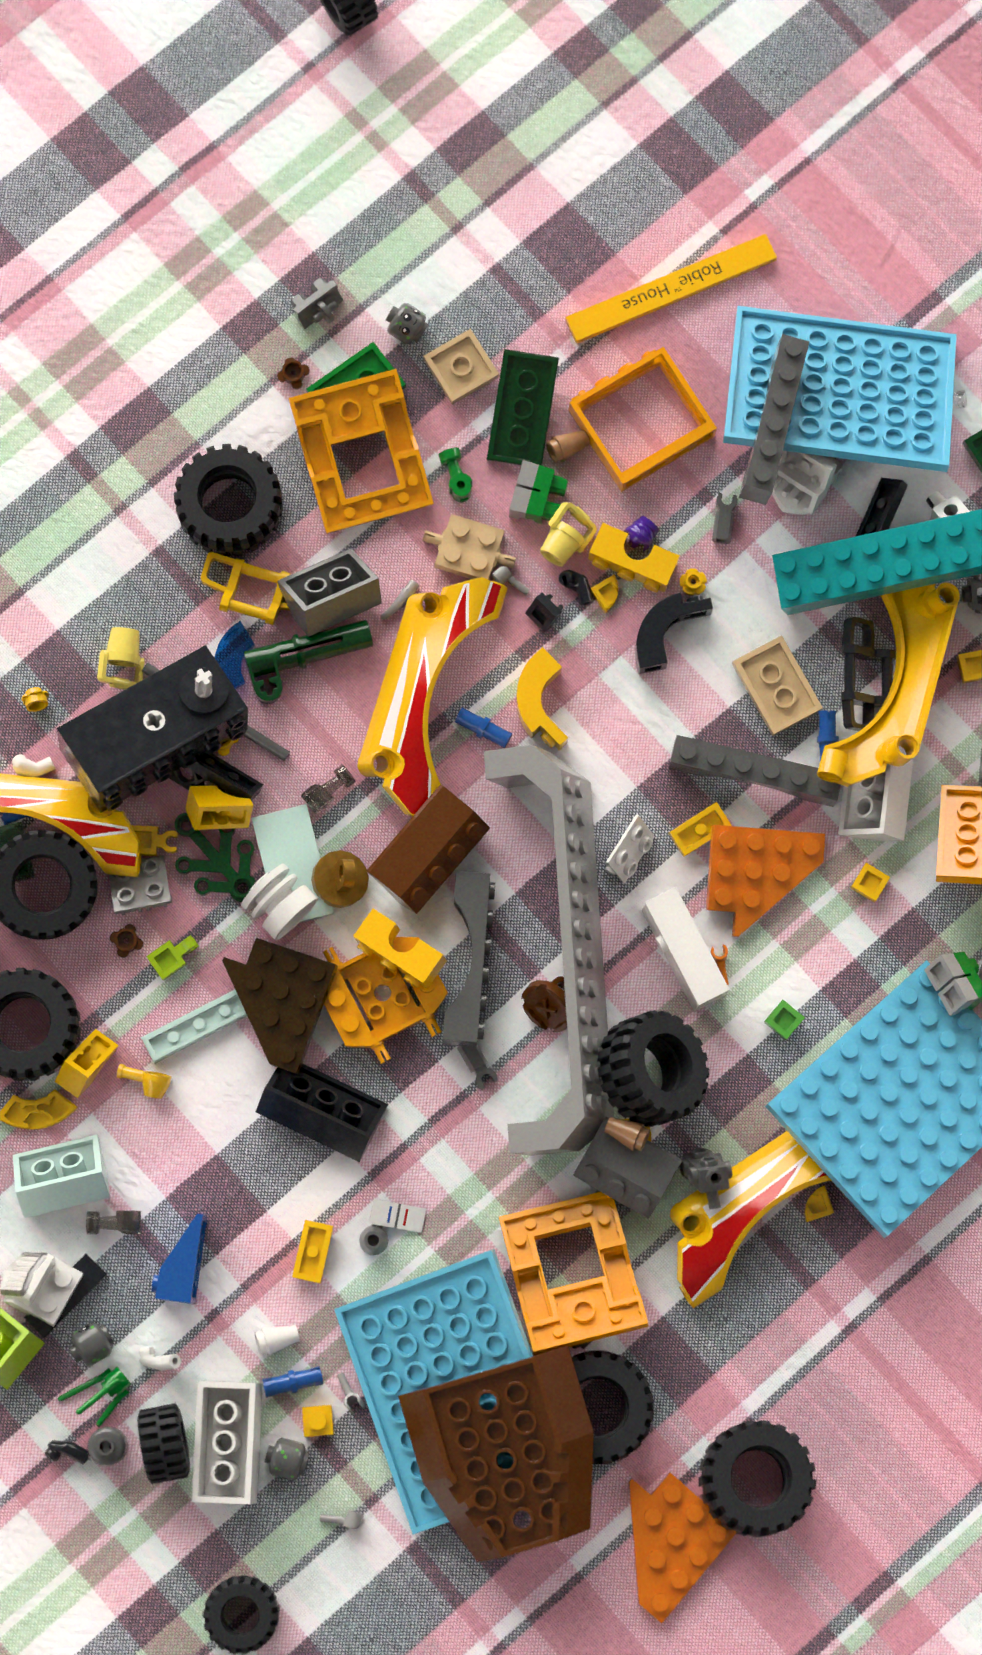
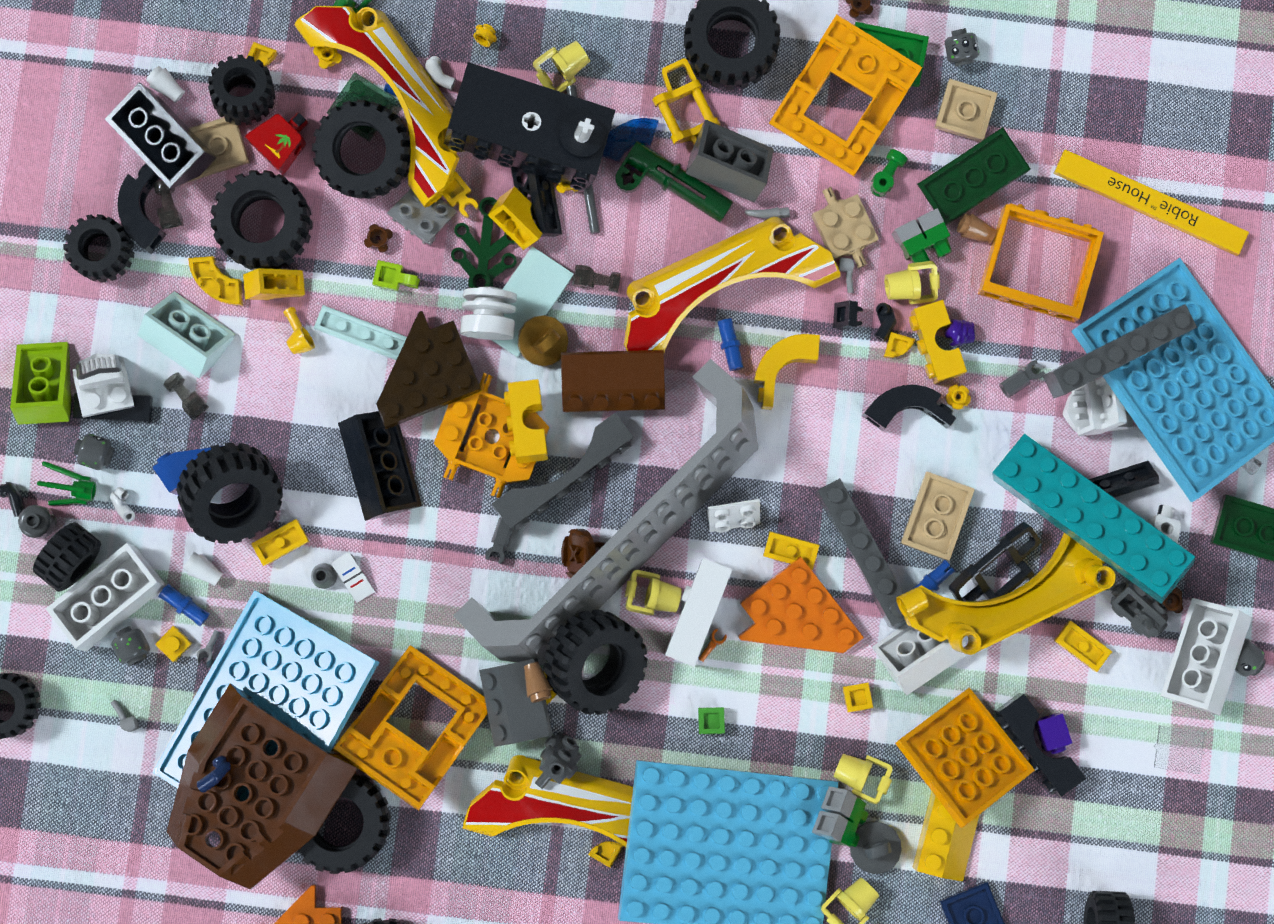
camera: 50 degrees right, 5 degrees up
(210, 1246) = (241, 516): none -> black tyre
(471, 1469) = (216, 775): none -> dark blue arm
(641, 973) = (659, 594): none -> light yellow piece
(931, 938) = (855, 772): none -> light yellow piece

